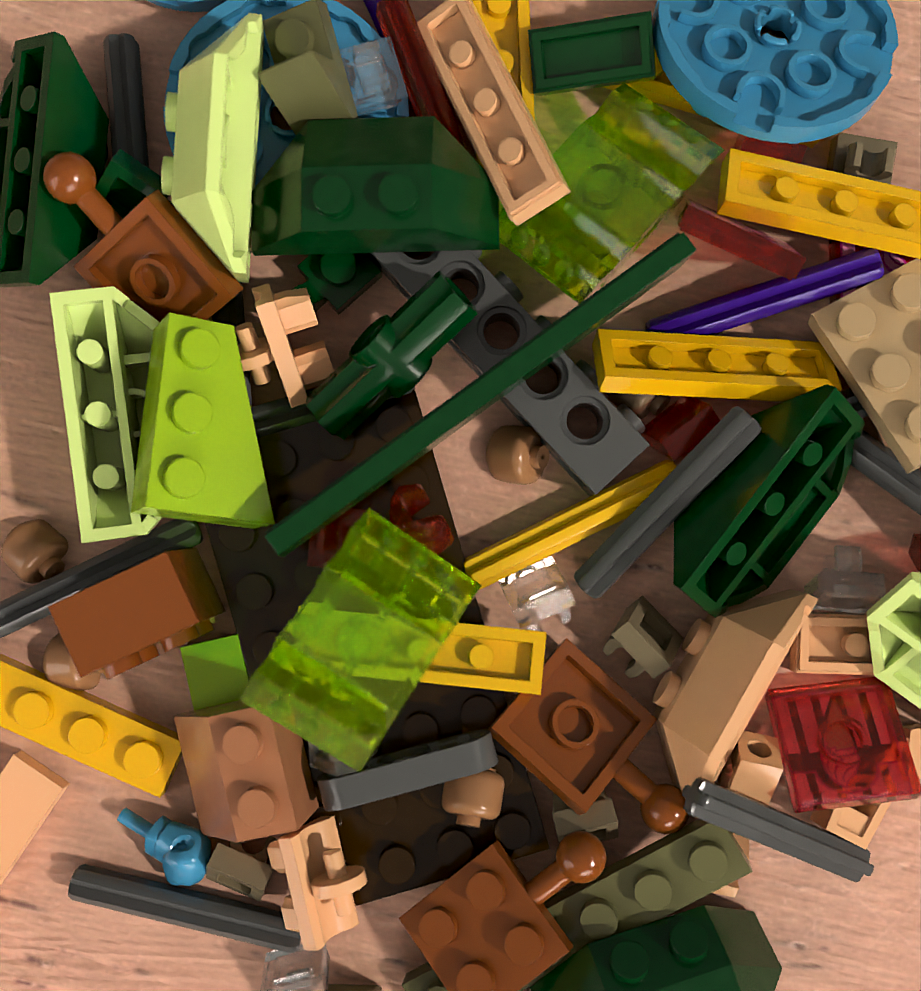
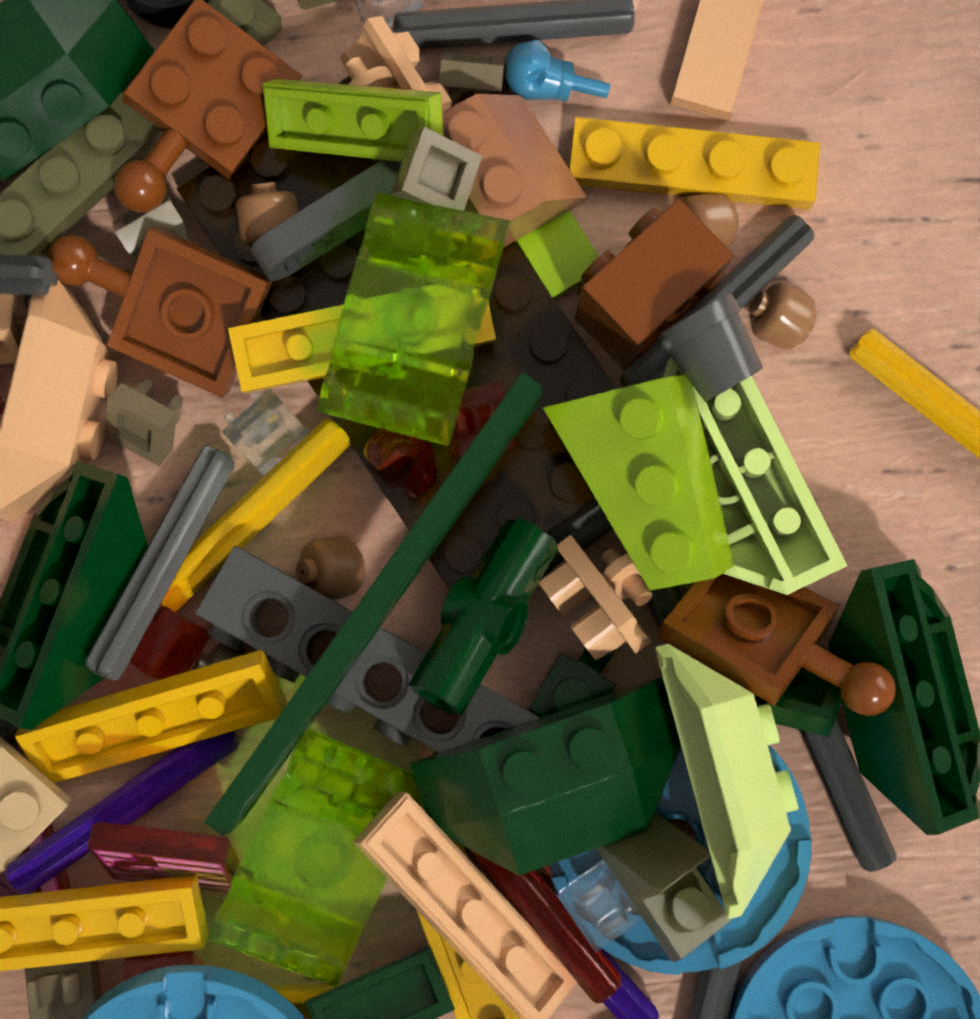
camera: 160 degrees right, 5 degrees down
(98, 525) = (712, 348): none -> dark grey piece
(297, 774) = (436, 171): none -> dark tan tile
(360, 853) = (347, 118): none -> lime tile

